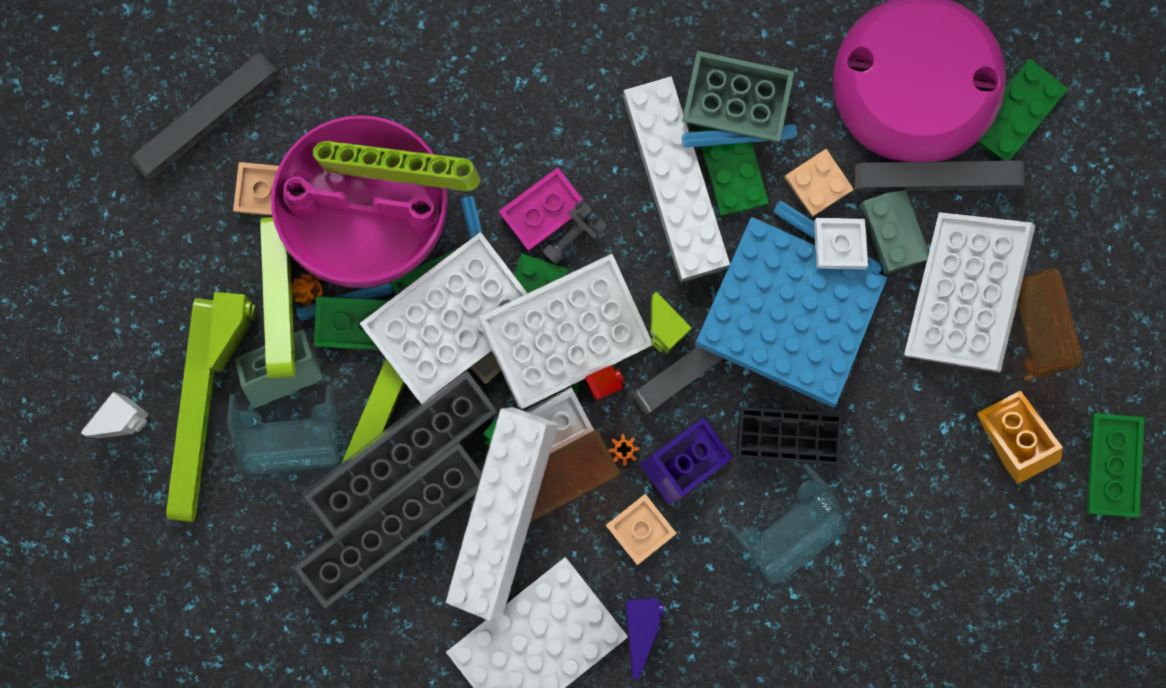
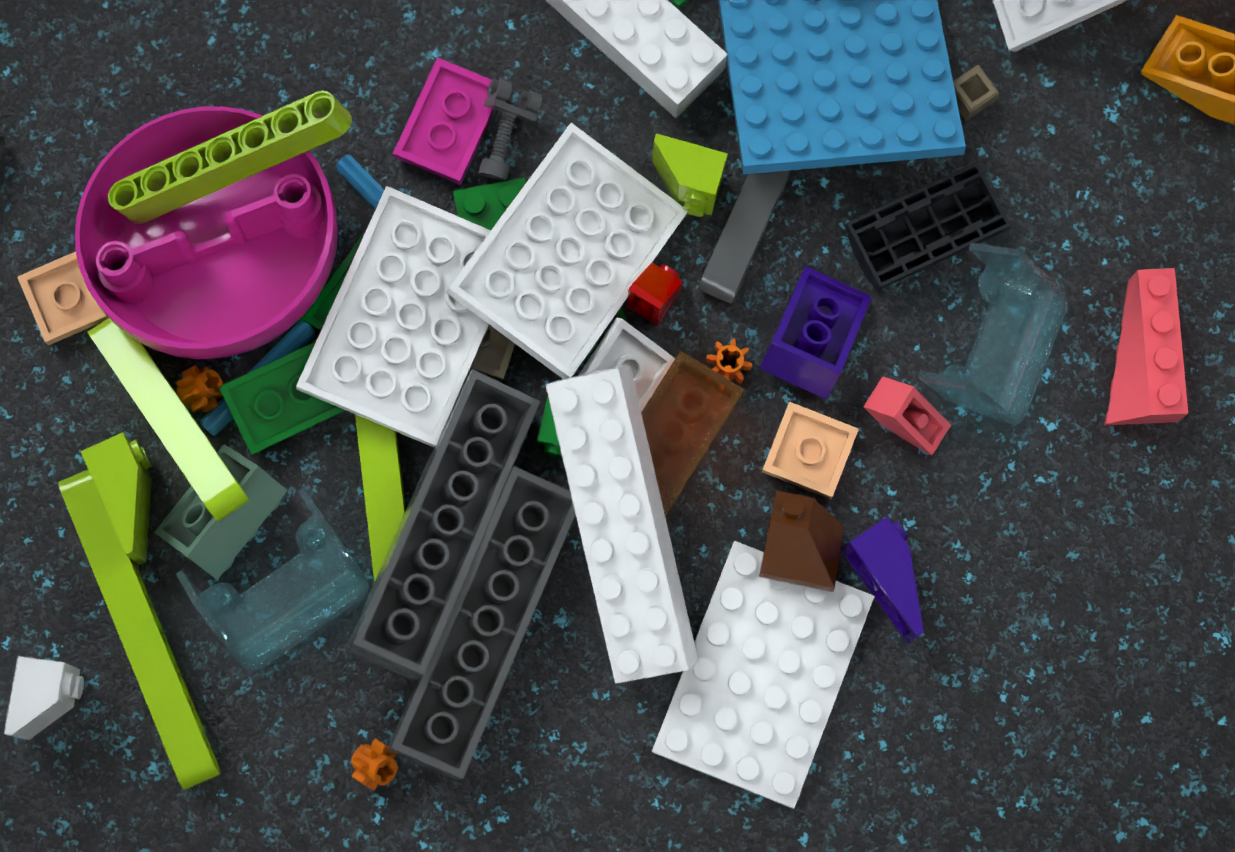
camera: 30 degrees left, 5 degrees down
(282, 567) = (374, 764): none -> orange gear
(602, 582) = (801, 543): none -> reddish brown slope
(710, 541) = (907, 414): none -> coral slope
(866, 368) = (974, 92): none -> dark tan slope
(876, 587) = (1149, 356): none -> coral wedge

